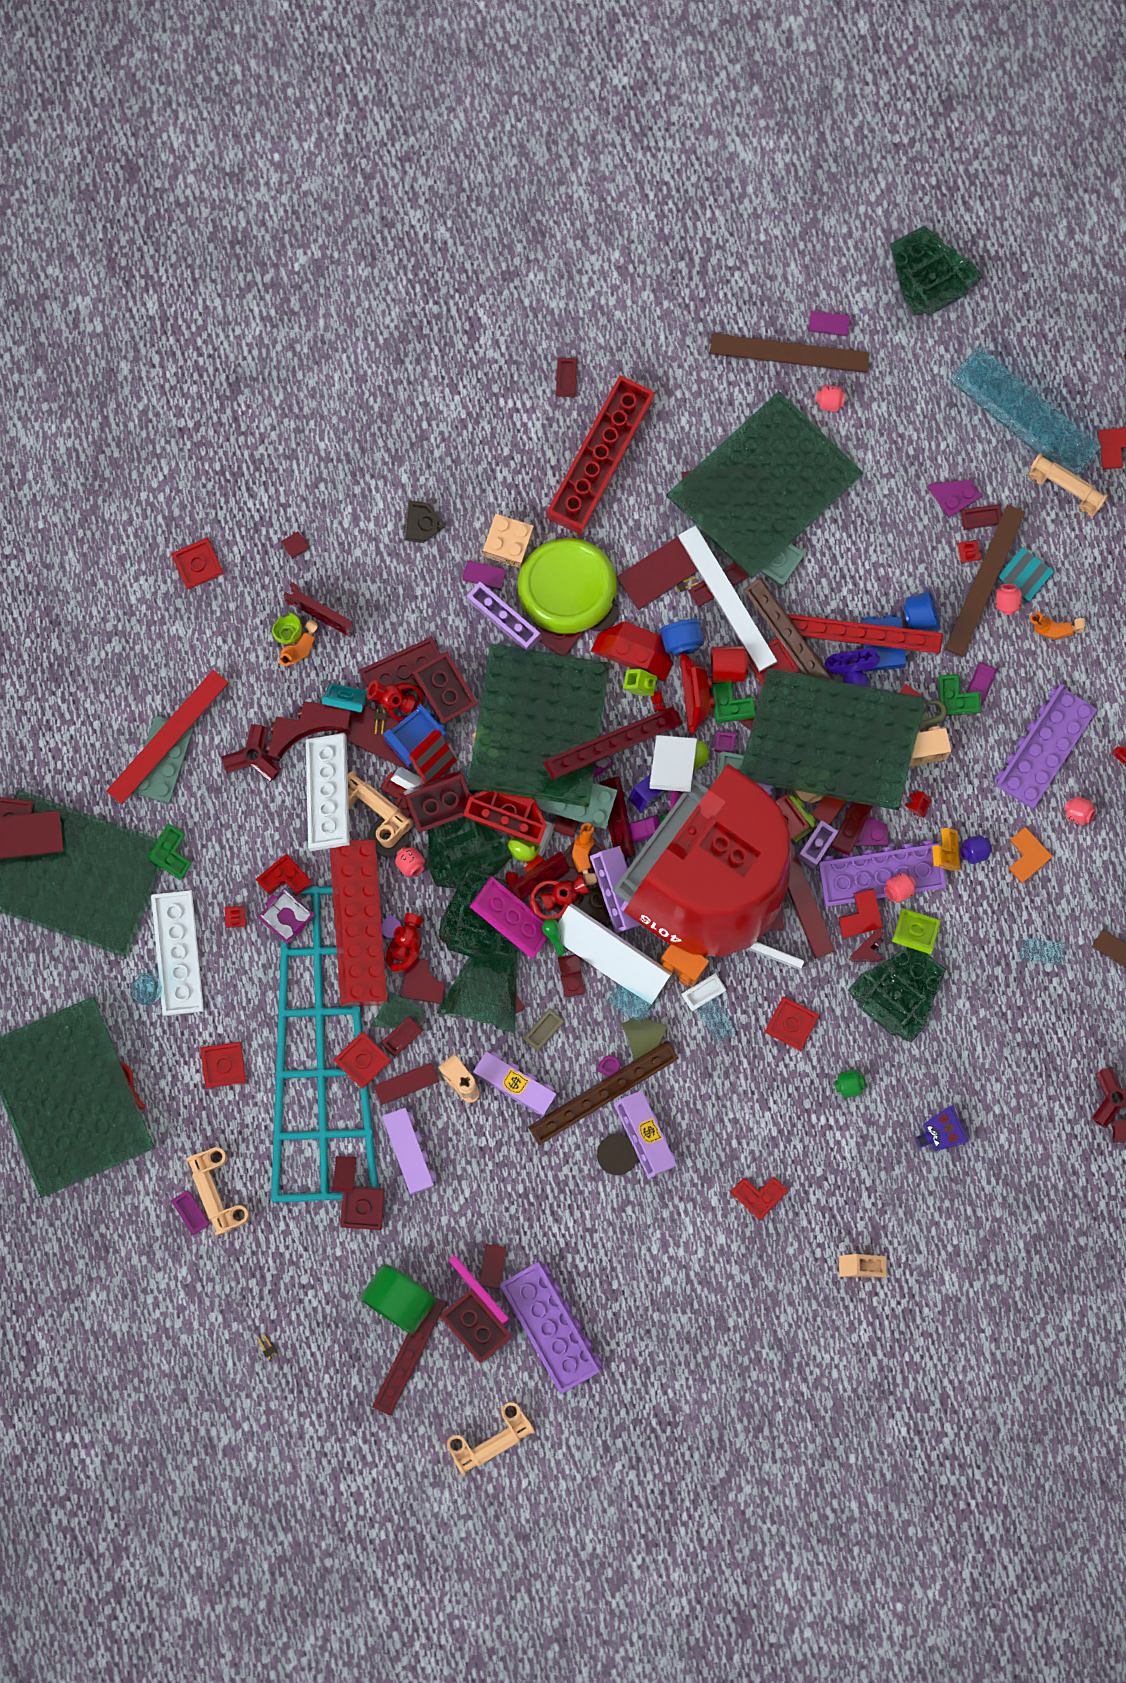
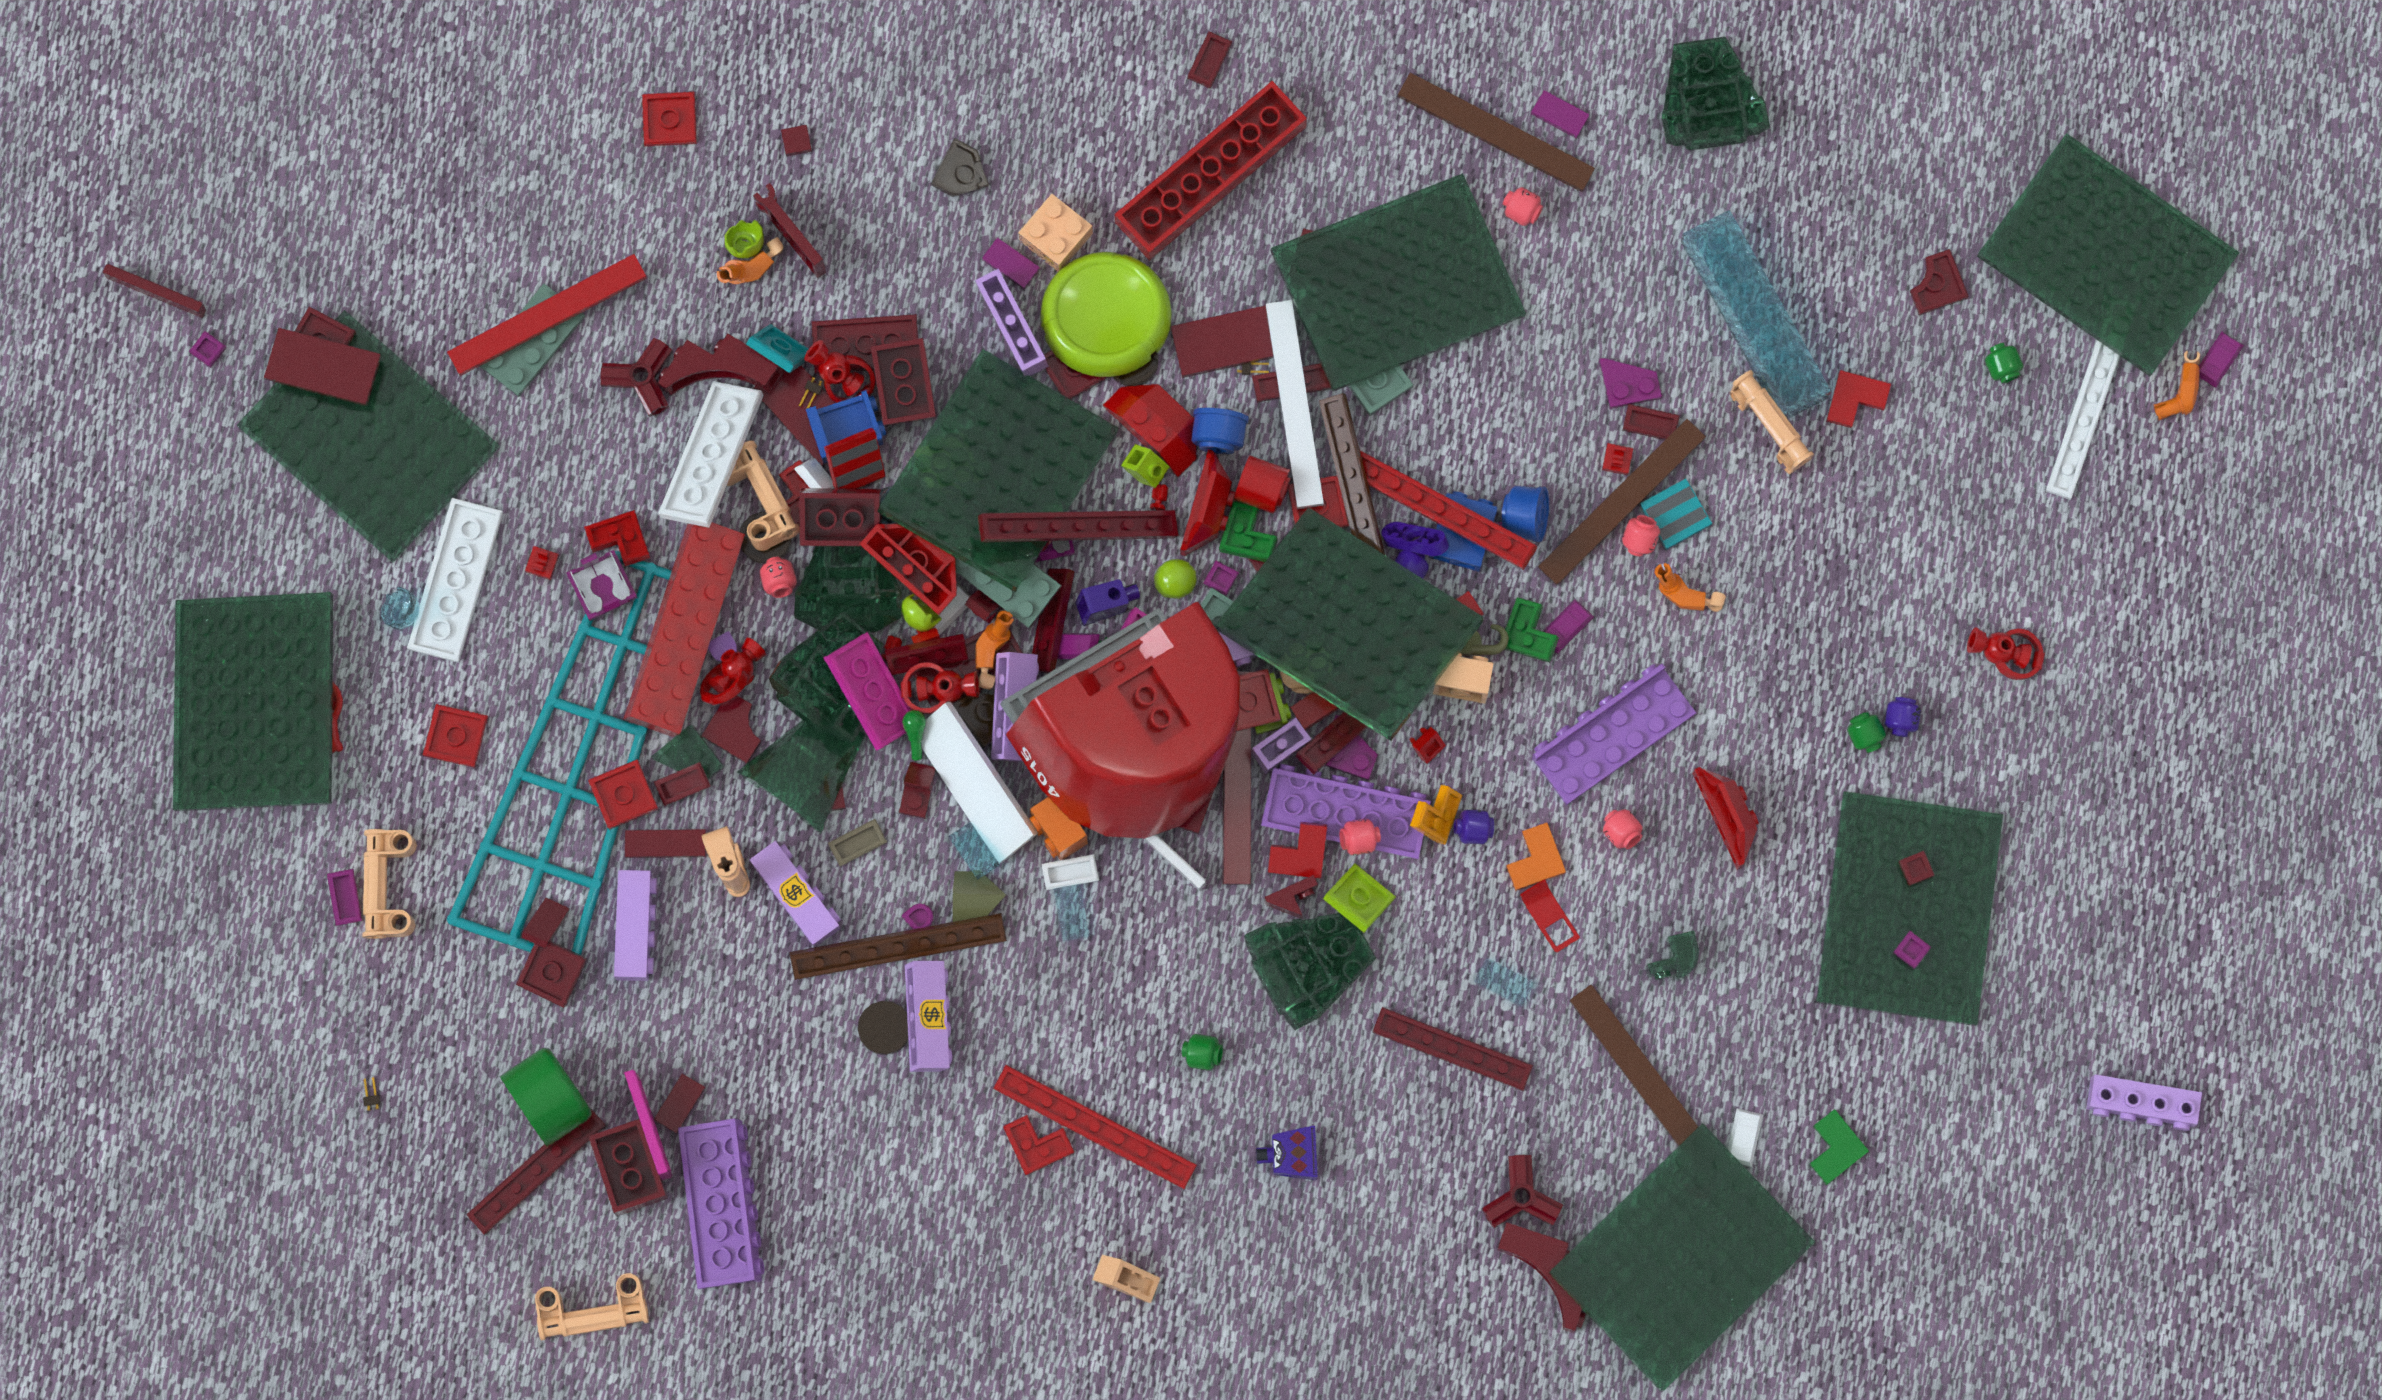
camera: 25 degrees right, 0 degrees up
(165, 853) = (487, 452): green tile -> none
(673, 763) = (1142, 579): white tile -> none
(791, 1023) = (1162, 952): red tile -> none
(795, 1166) = (1095, 1127): none -> red tile
(1024, 1012) = (1452, 1049): none -> dark red tile
(1049, 890) = (1546, 911): none -> red piece

